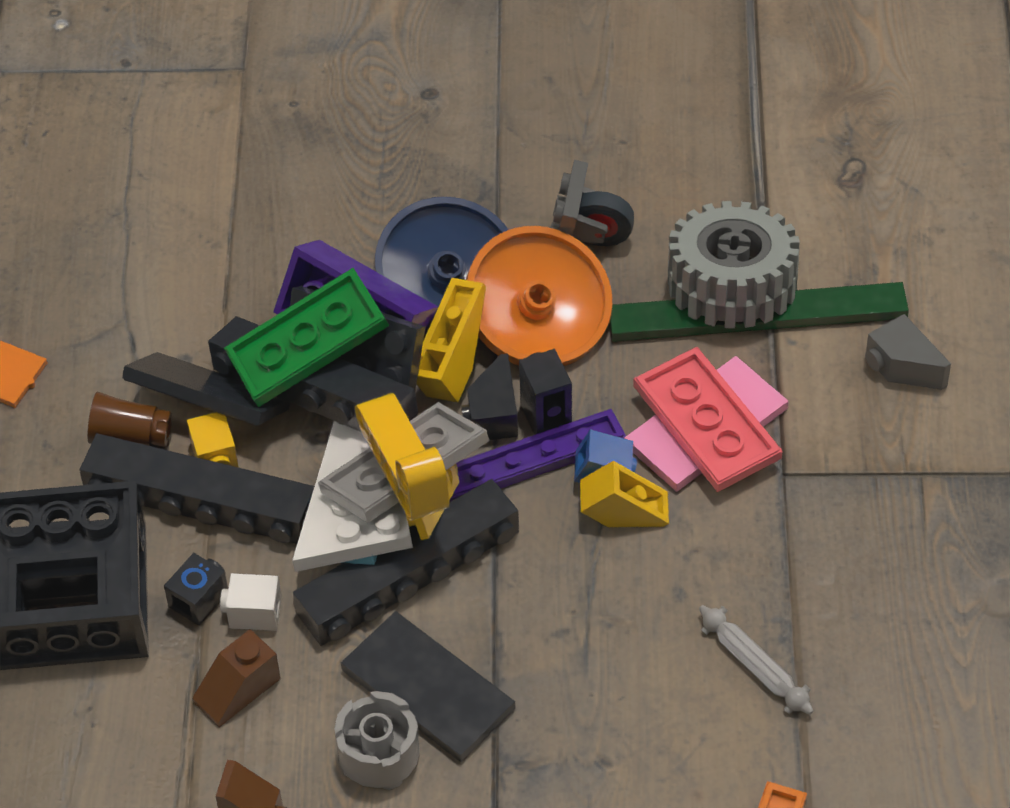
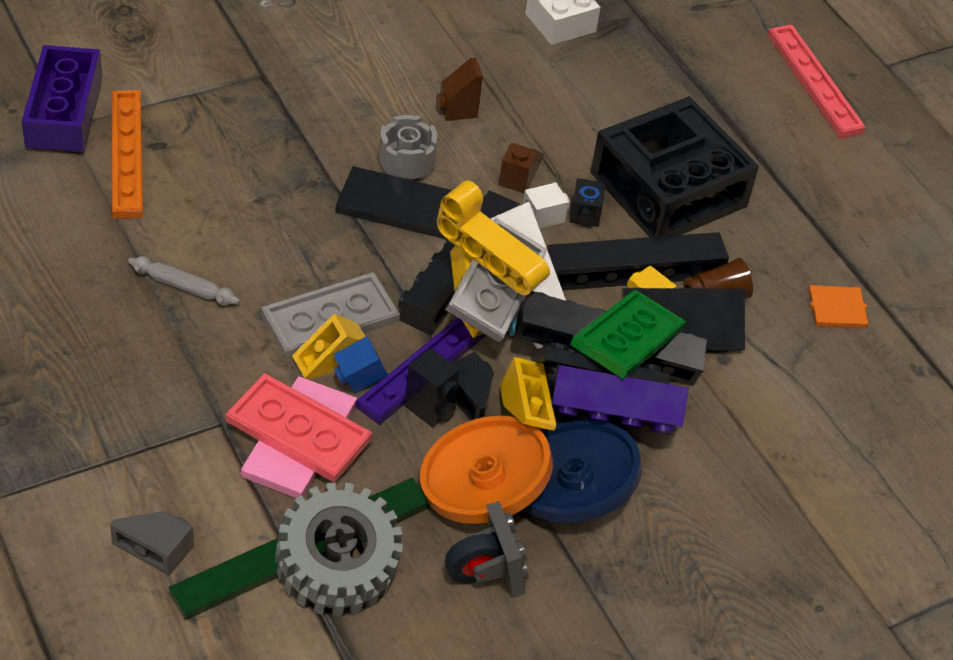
camera: 145 degrees right, 5 degrees down
(598, 559) = (301, 316): none -> light grey tile

